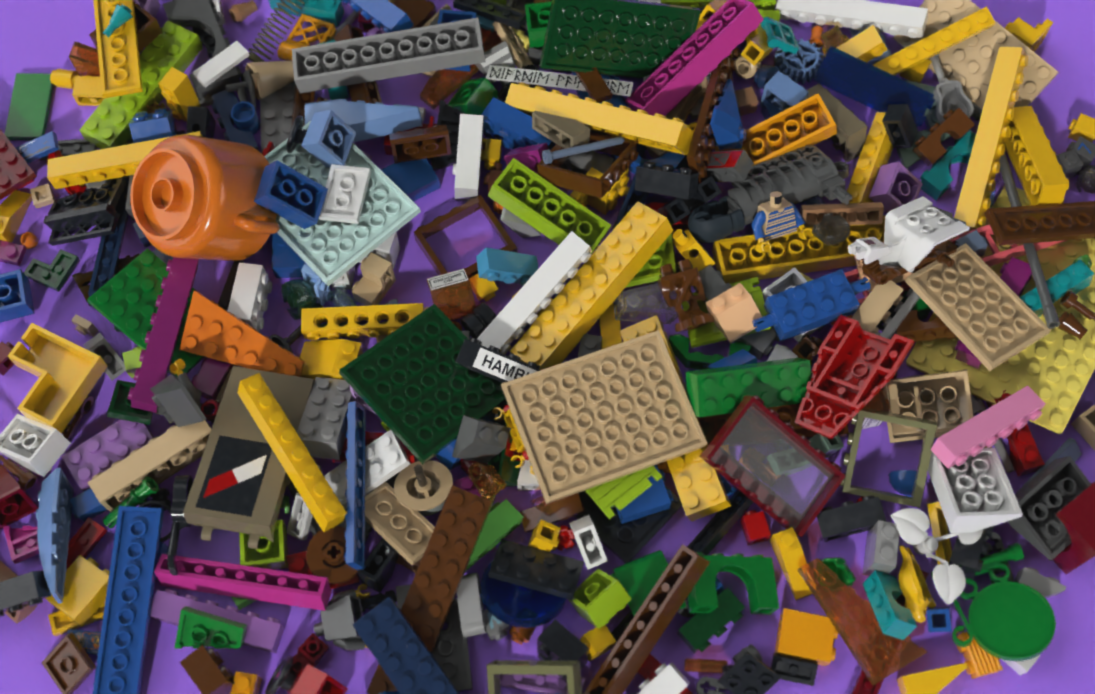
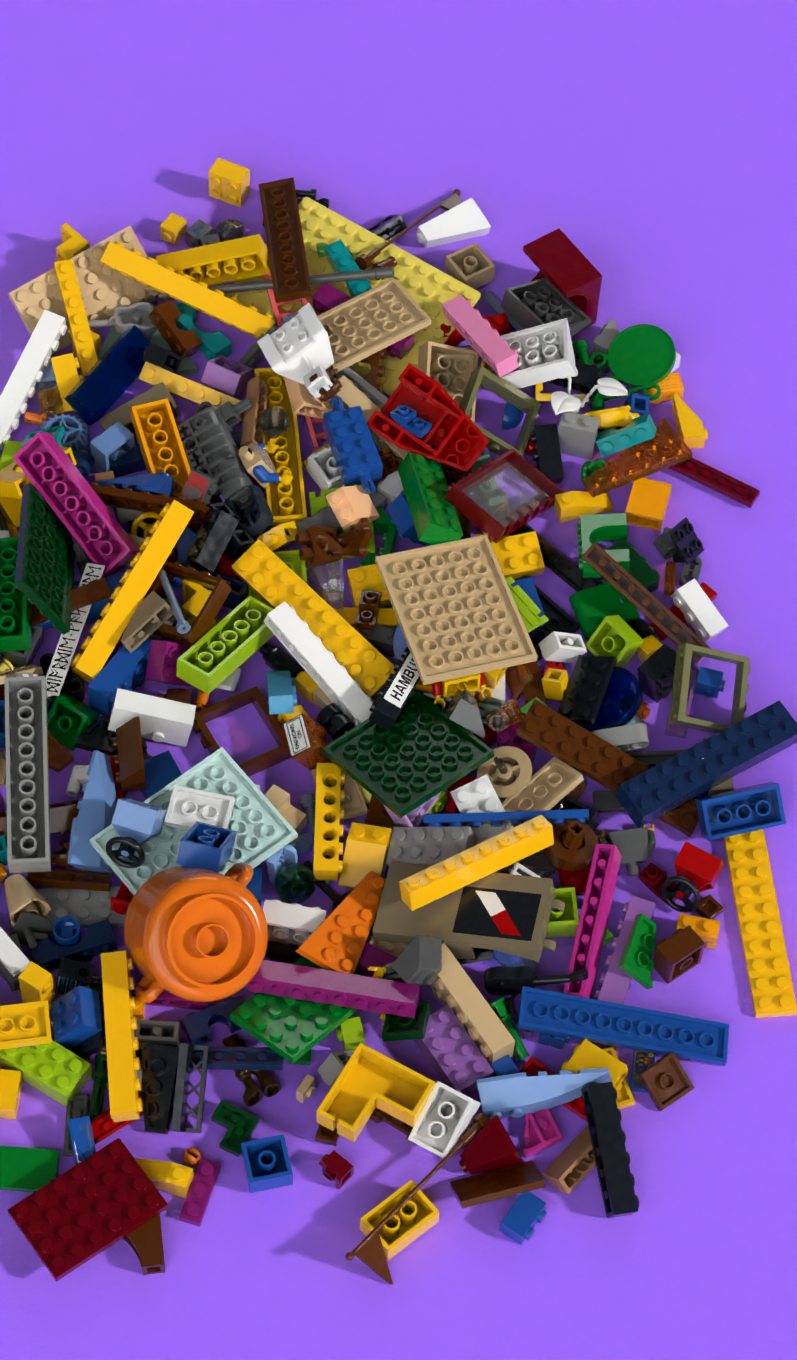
camera: 90 degrees left, 10 degrees down
(42, 195) = (138, 1143): tan plate -> none
(374, 600) = (606, 821): black axle -> none
(604, 338) = (368, 610): none -> reddish brown slope
(755, 527) = (550, 526): red brick -> none
(794, 669) = (675, 512): black plate -> none
(849, 357) = (407, 419): none -> blue slope

